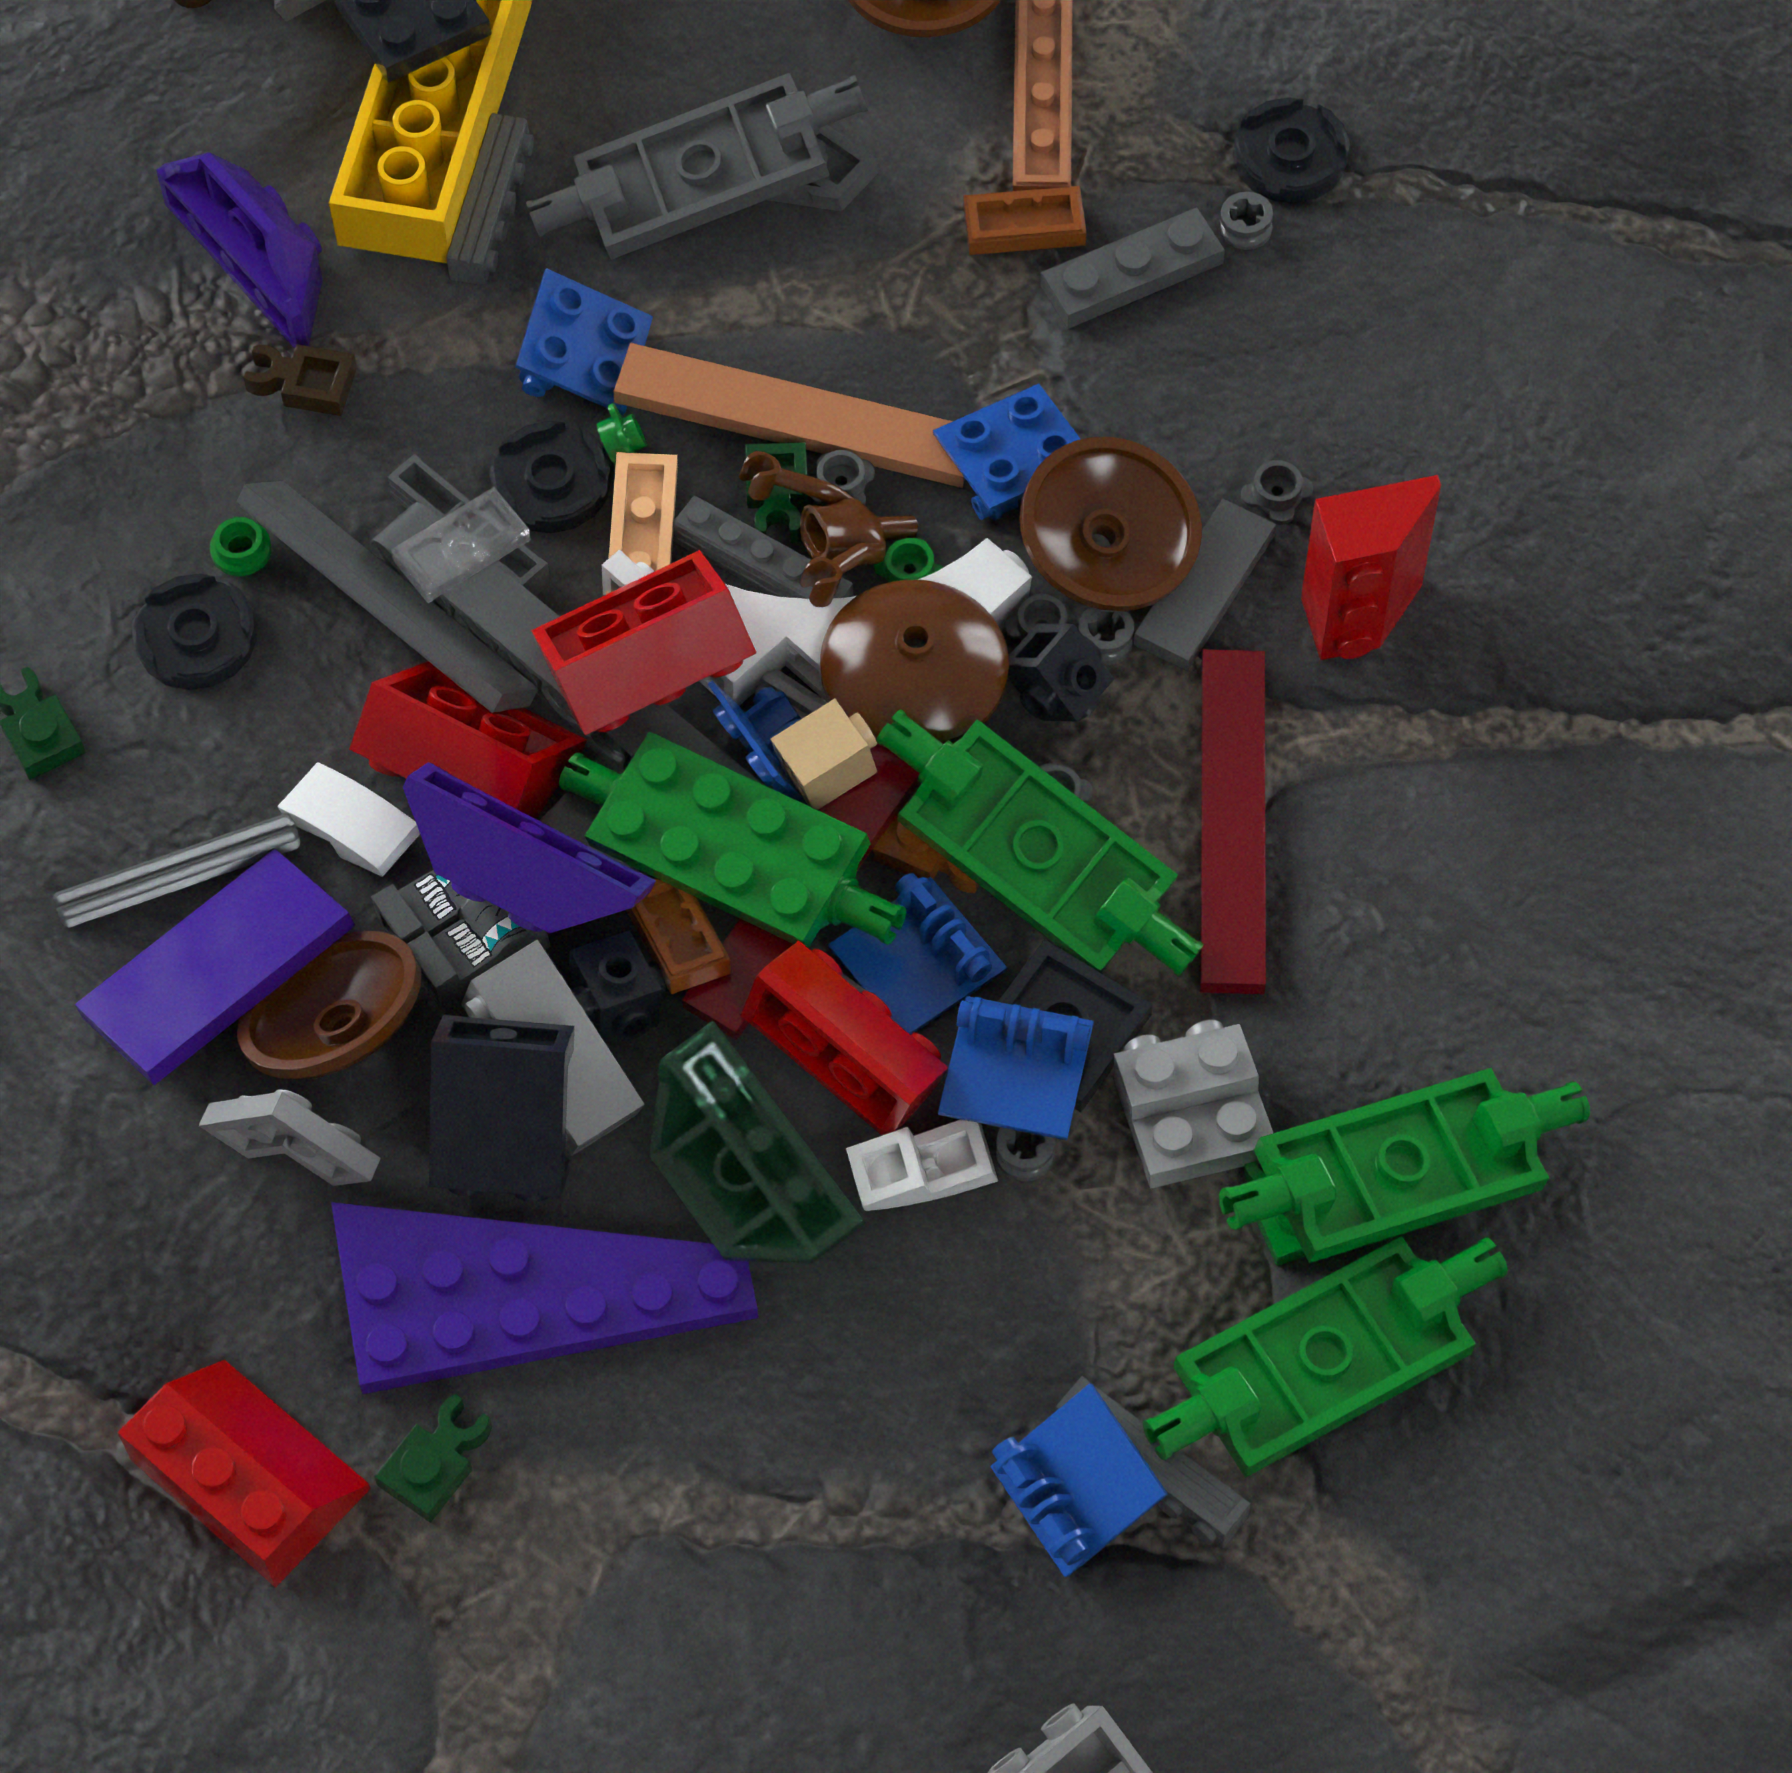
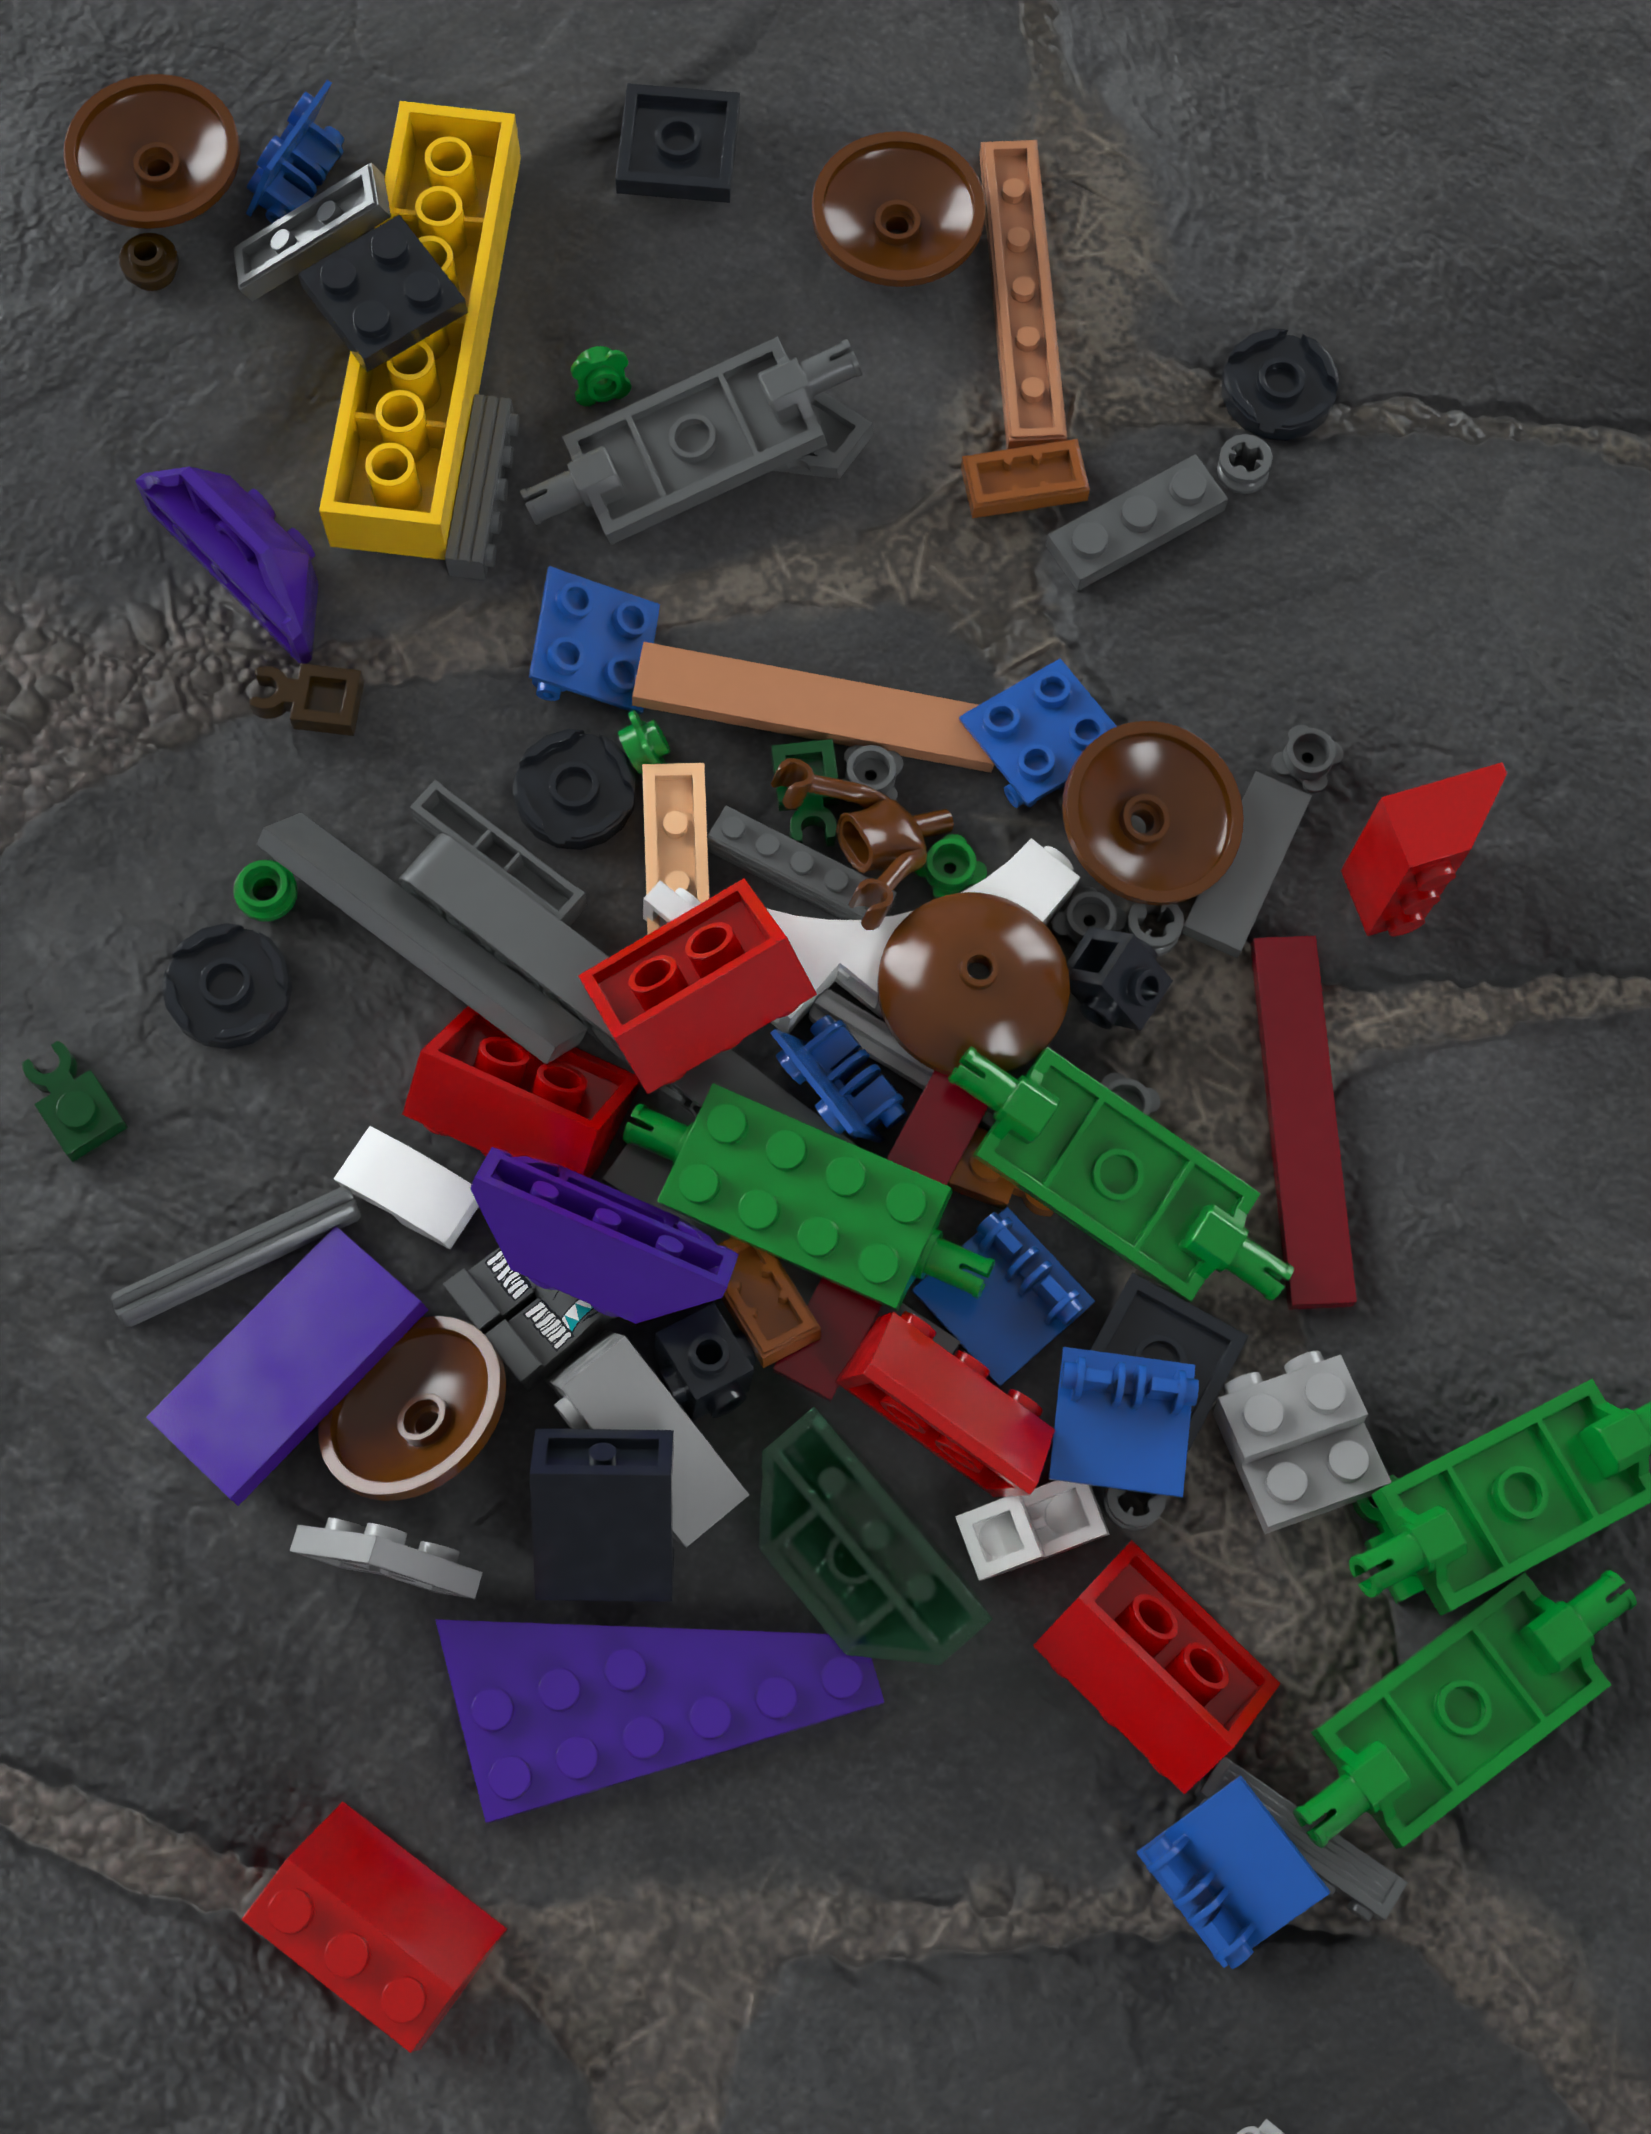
camera: 10 degrees left, 10 degrees up
(430, 1466) = (564, 1903): dark green plate -> none
(460, 544) = (495, 885): clear plate -> none
(614, 92) = (600, 375): none -> green plate
(826, 753) = (897, 1095): tan brick -> none
(1025, 1293) = (1158, 1667): none -> red slope

